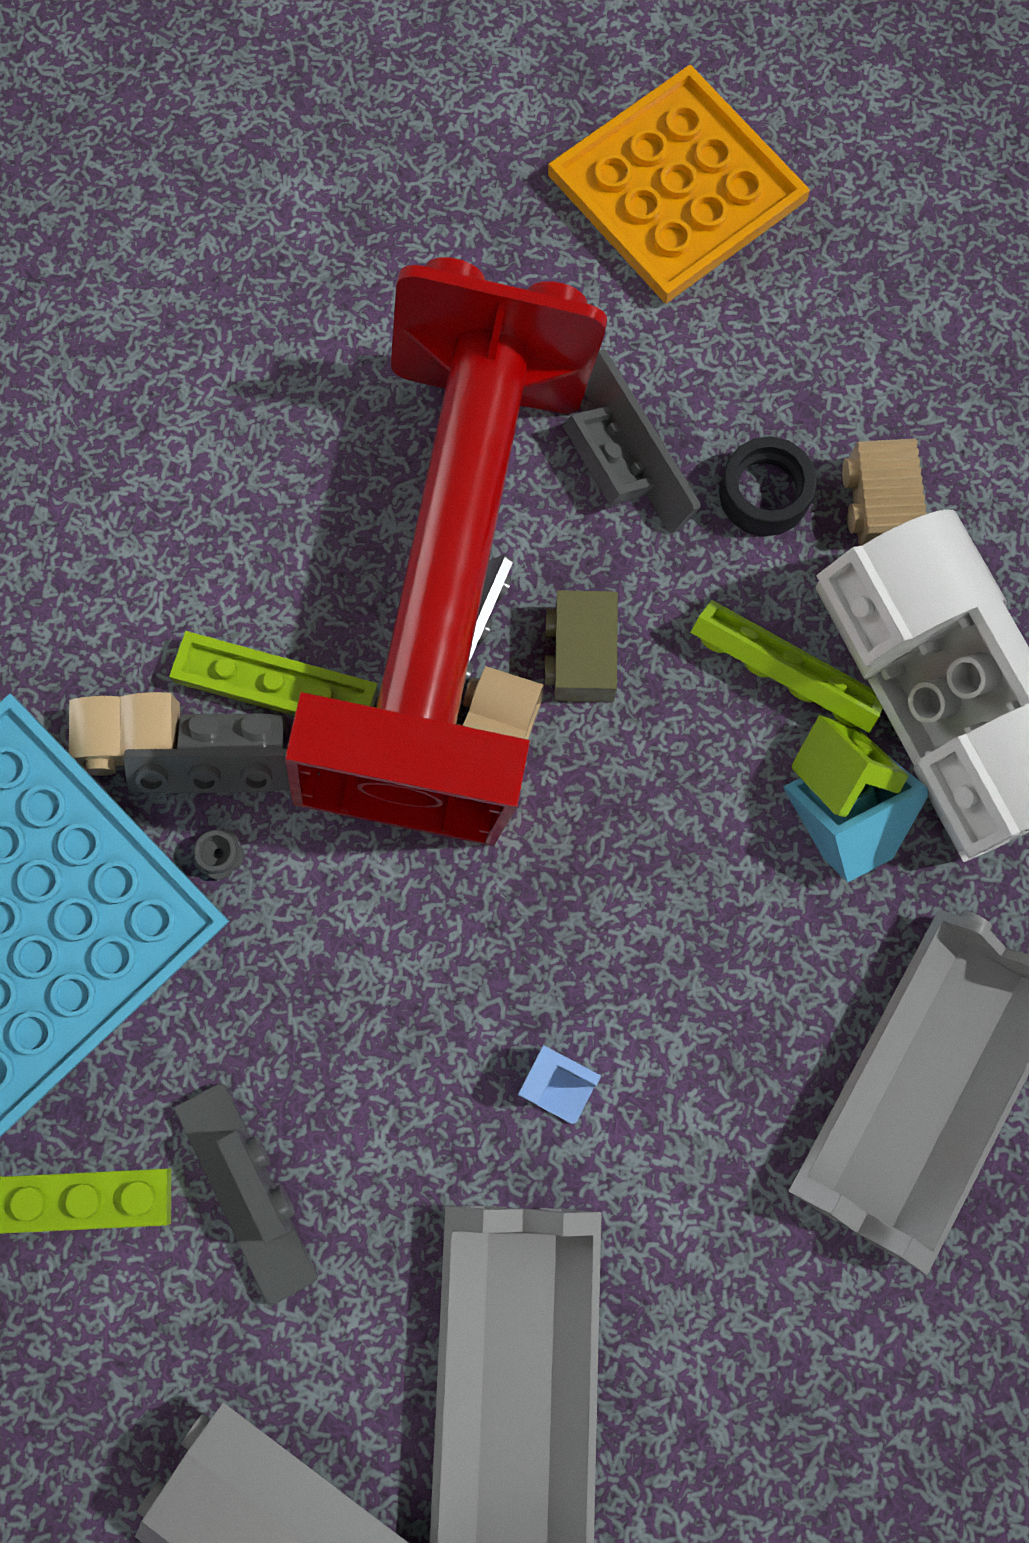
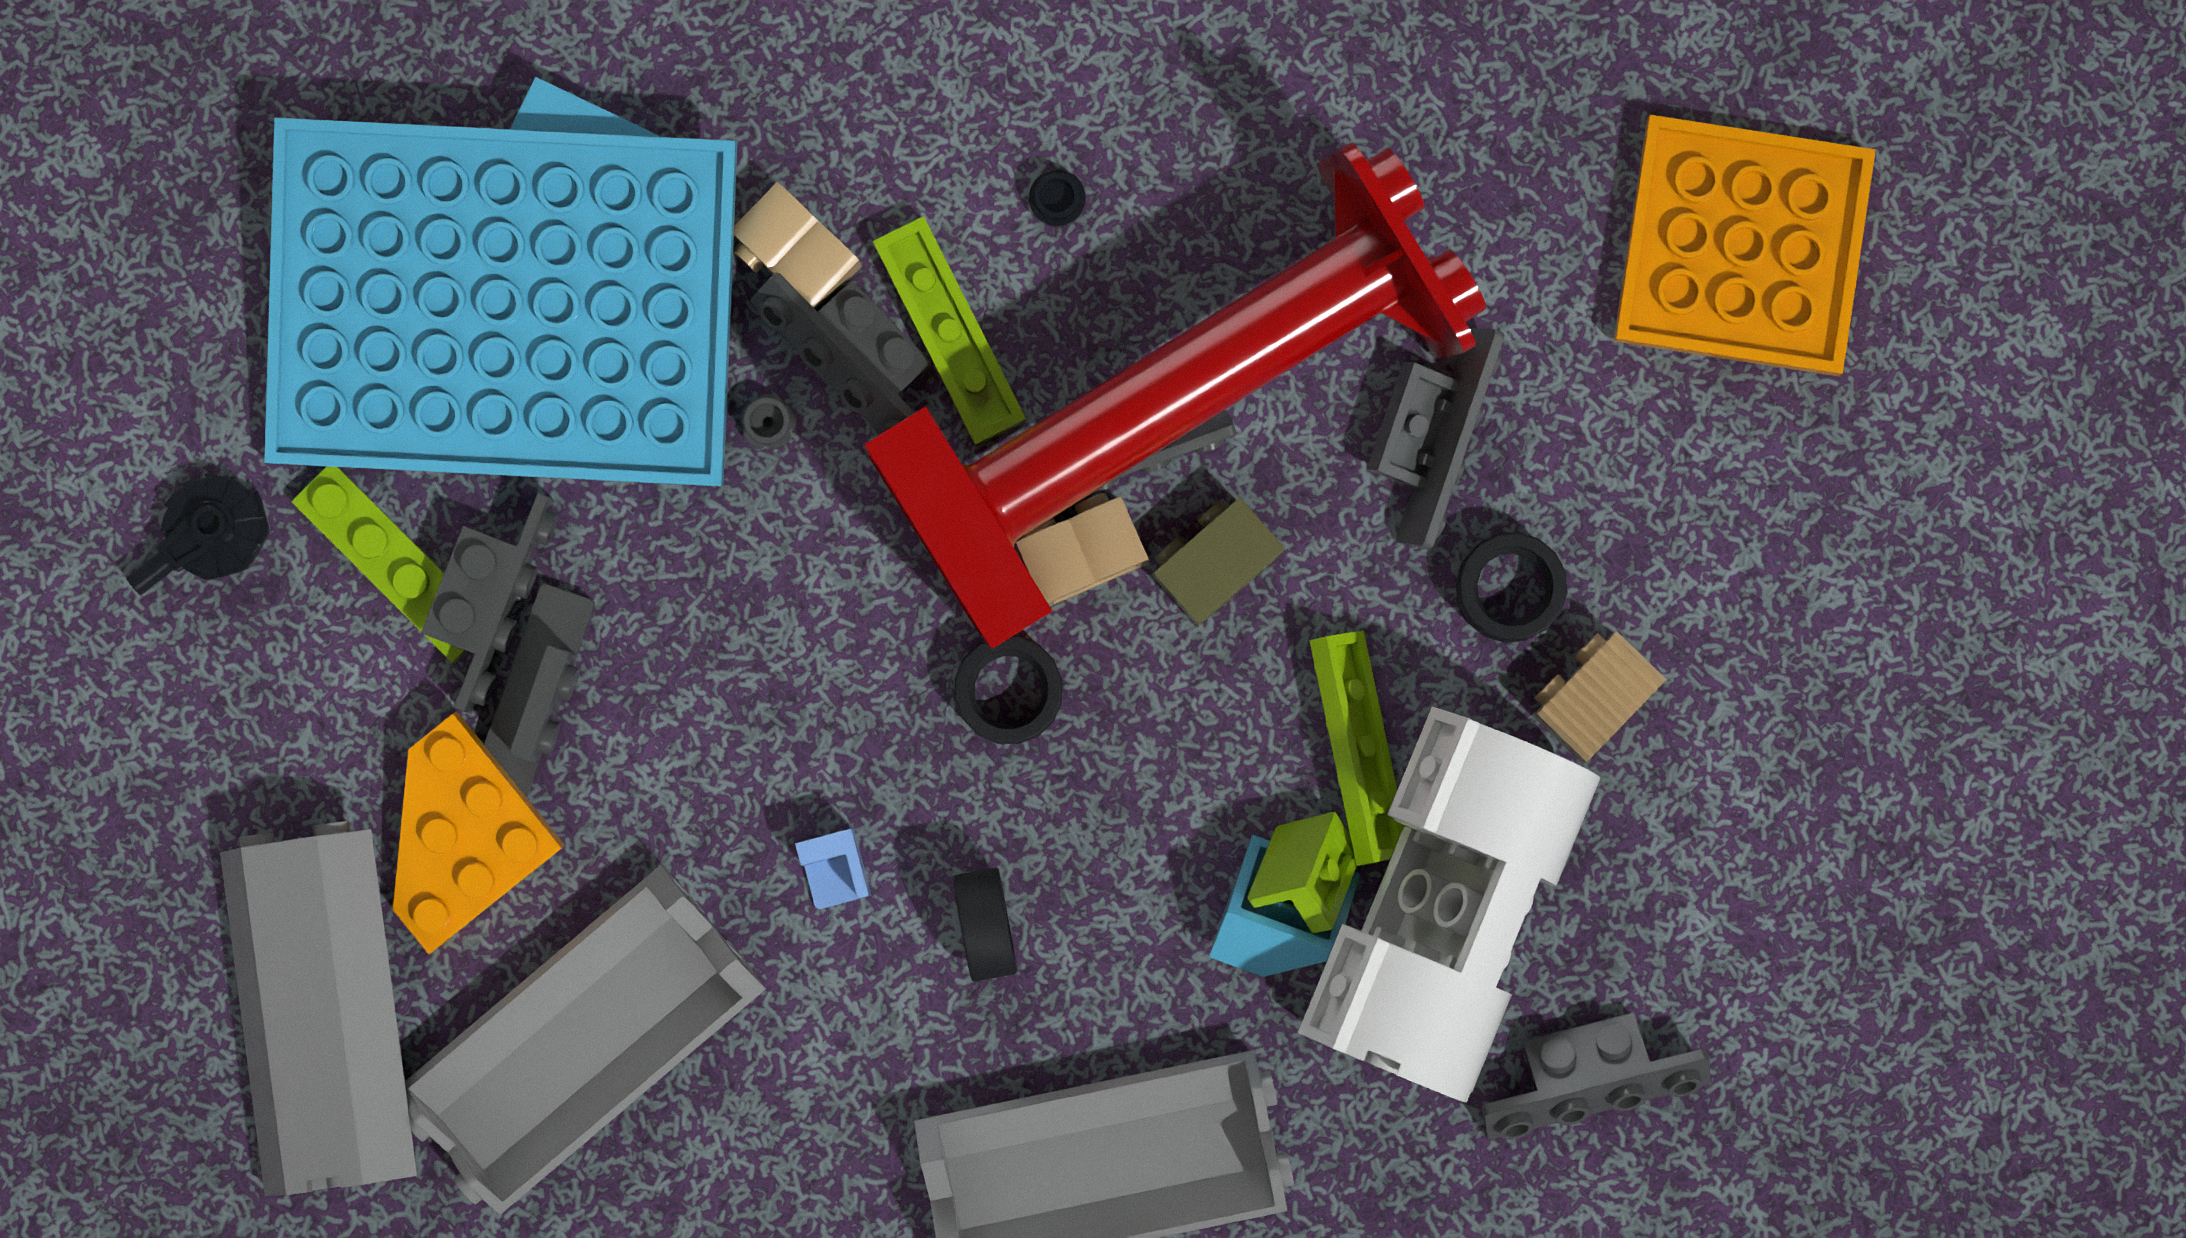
camera: 50 degrees right, 10 degrees up
(139, 1158) = (480, 593): none -> dark grey bracket
(257, 544) = (1057, 198): none -> black plate
(291, 1335) = (461, 834): none -> light orange plate
(545, 816) = (1008, 733): none -> black tyre
(694, 1012) = (984, 924): none -> black tyre

